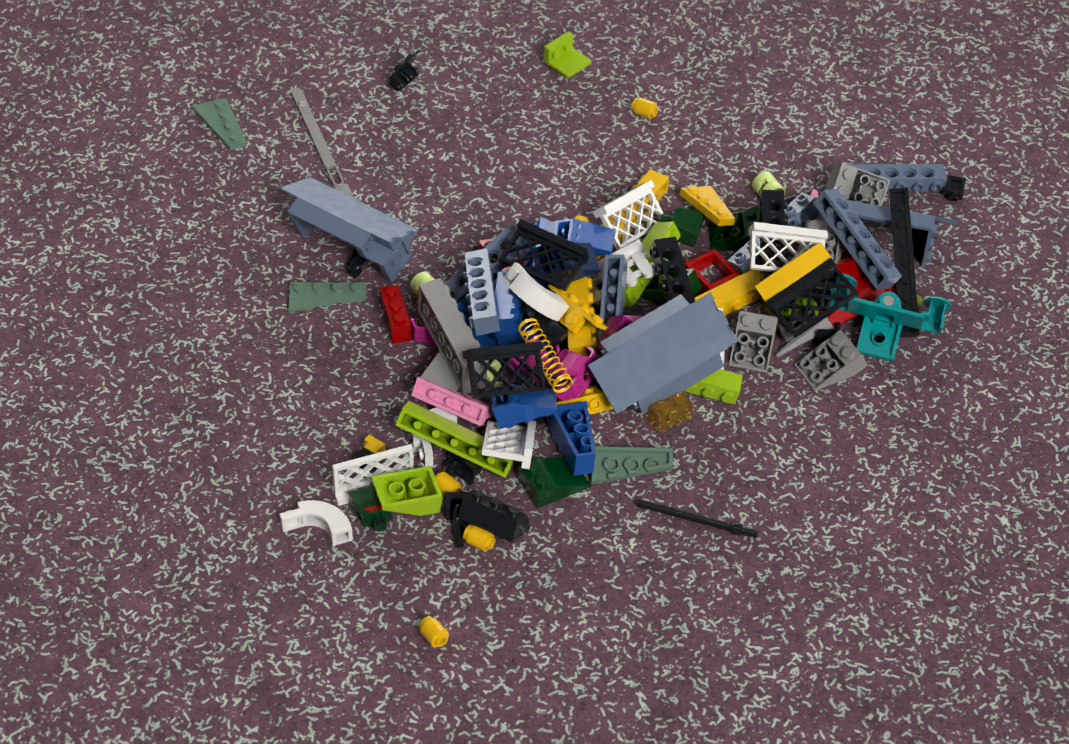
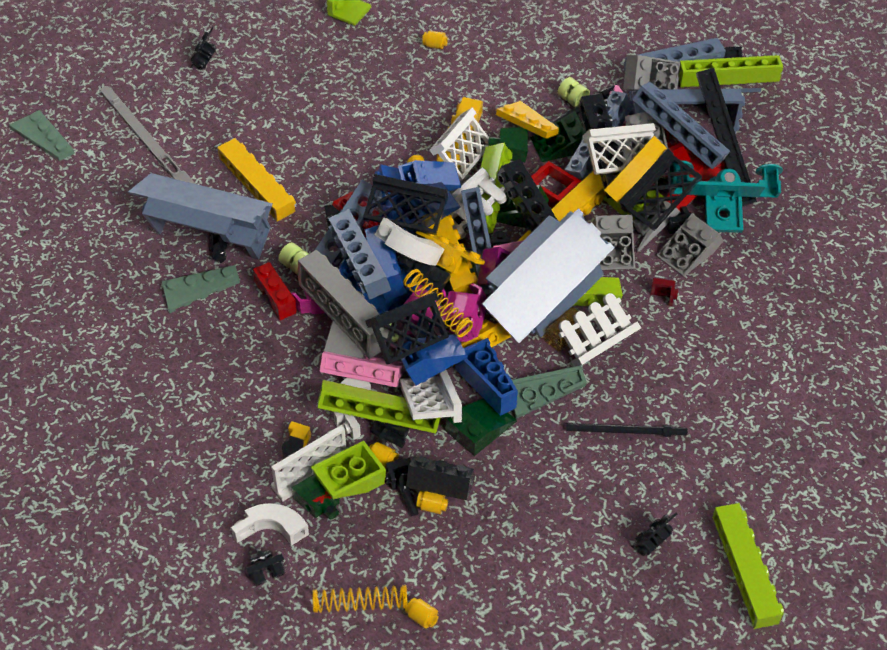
camera: 15 degrees left, 5 degrees up
(298, 553) = (275, 564): none -> black hips
(337, 597) = (403, 594): none -> yellow piece
(415, 206) = (256, 178): none -> yellow brick
(682, 617) = (655, 535): none -> black hinge
(693, 425) = (589, 333): none -> white fence
(767, 666) = (747, 566): none -> lime brick
(787, 396) = (665, 288): none -> dark red bracket
(950, 200) = (733, 70): none -> lime brick

